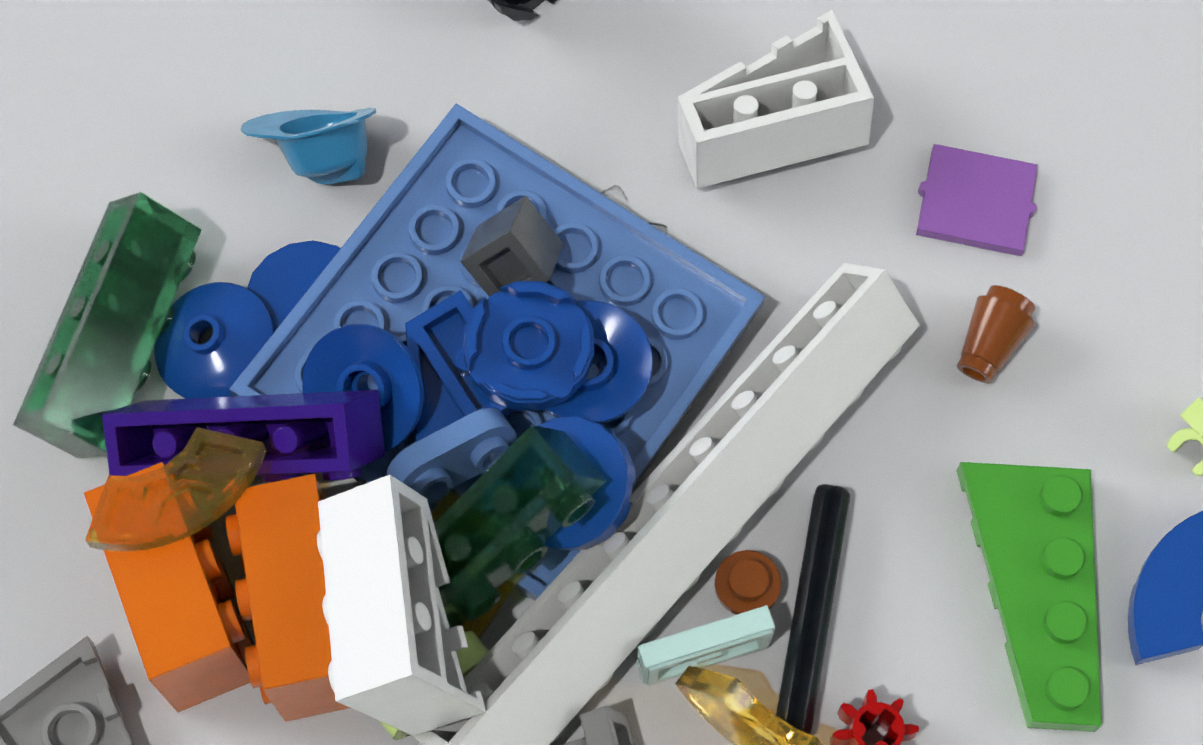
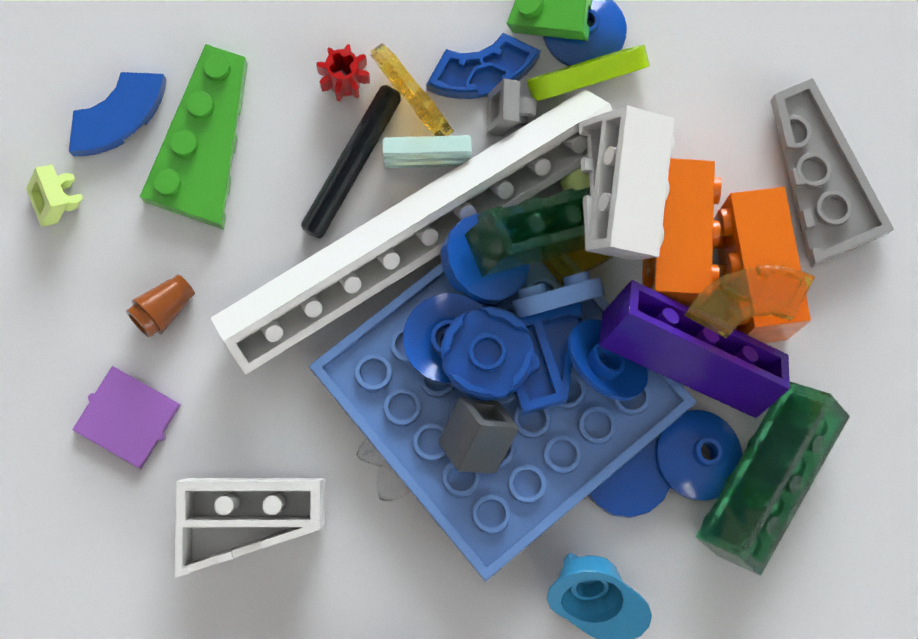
camera: 165 degrees left, 10 degrees up
(747, 582) = (386, 186): dark orange plate -> none

